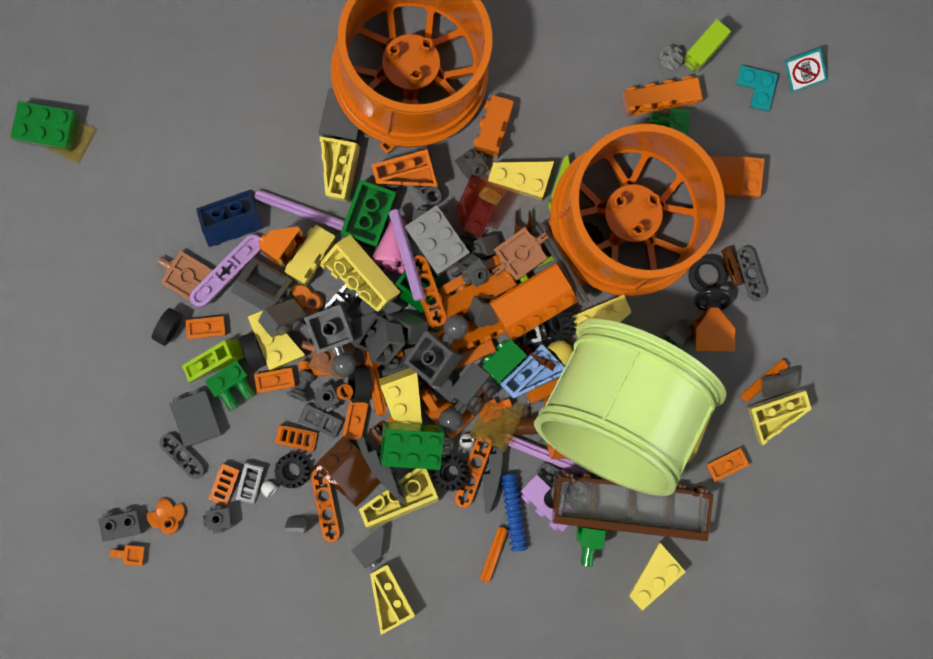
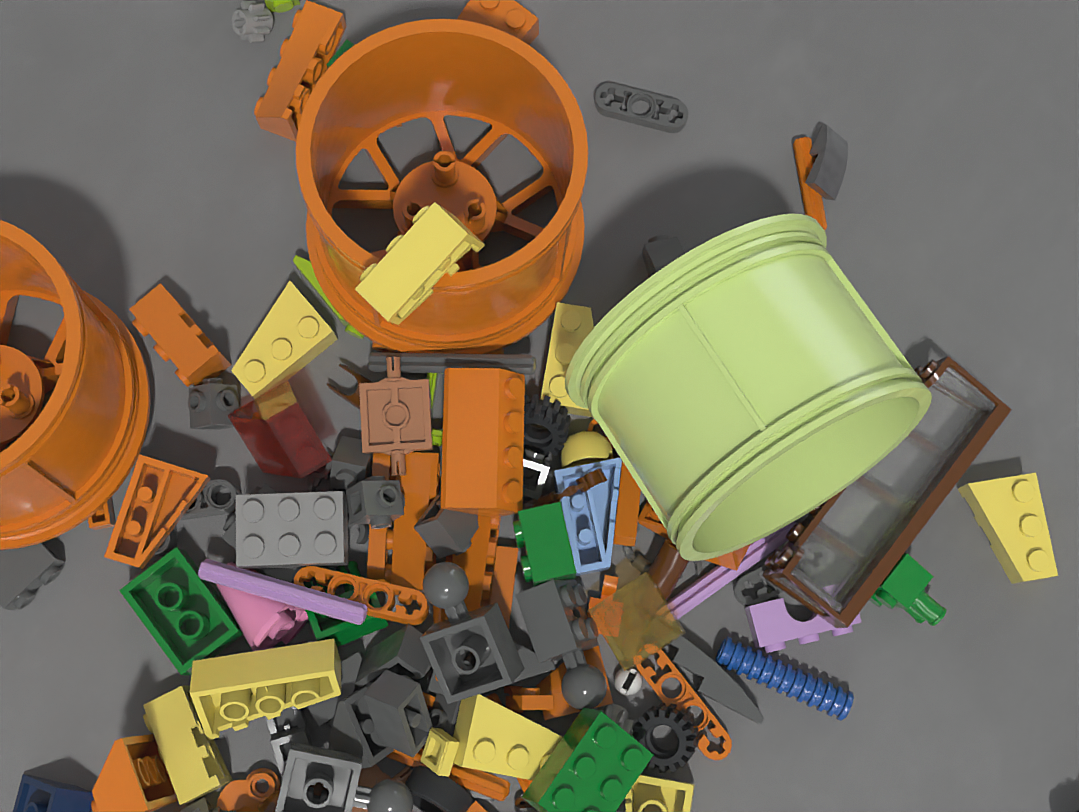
camera: 60 degrees left, 5 degrees down
(299, 210) = (104, 717): lavender axle -> none
(339, 166) = (80, 610): light yellow wedge -> none
(380, 372) = (439, 751): none -> light yellow tile
(493, 554) = (830, 751): orange axle -> none
(586, 224) = (416, 263): none -> light yellow wedge
(702, 261) = (621, 151): black tyre -> none
(713, 328) = (688, 203): orange piece -> none
(727, 465) = (904, 312): orange plate -> none
(732, 266) = (637, 130): reddish brown pin -> none
(777, 413) = (873, 194): light yellow wedge -> none

